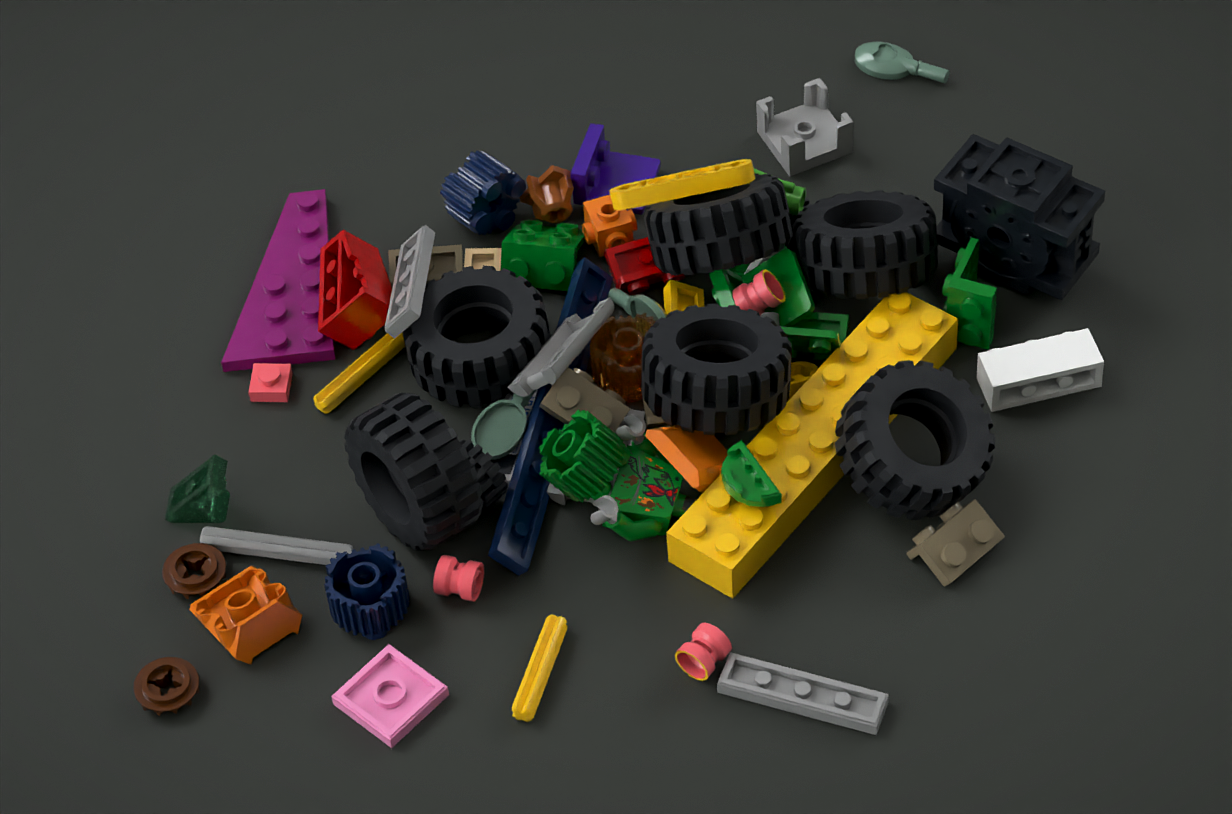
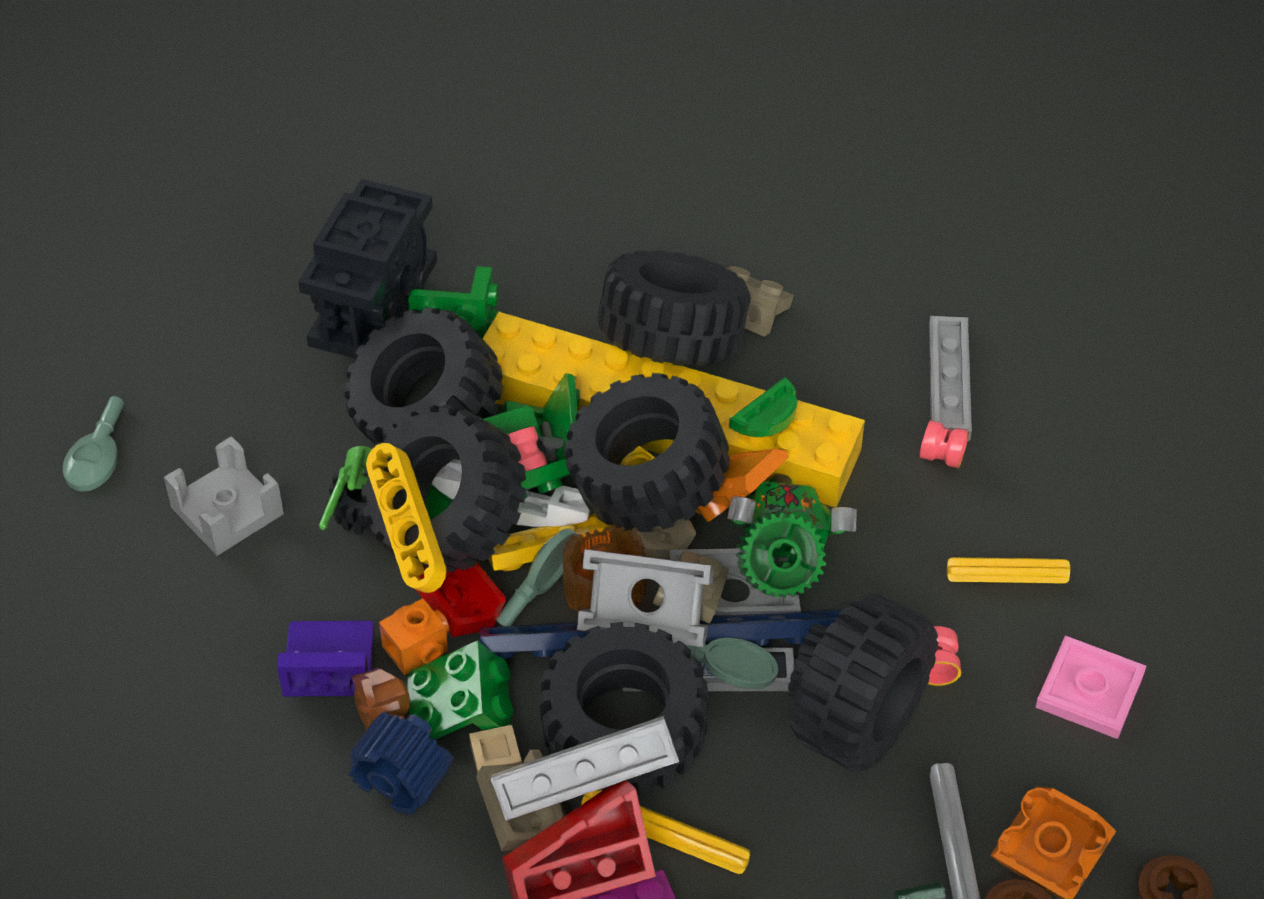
camera: 110 degrees left, 0 degrees up
(367, 591) = (994, 723): dark blue brick -> none
(1040, 369) = (527, 267): white brick -> none

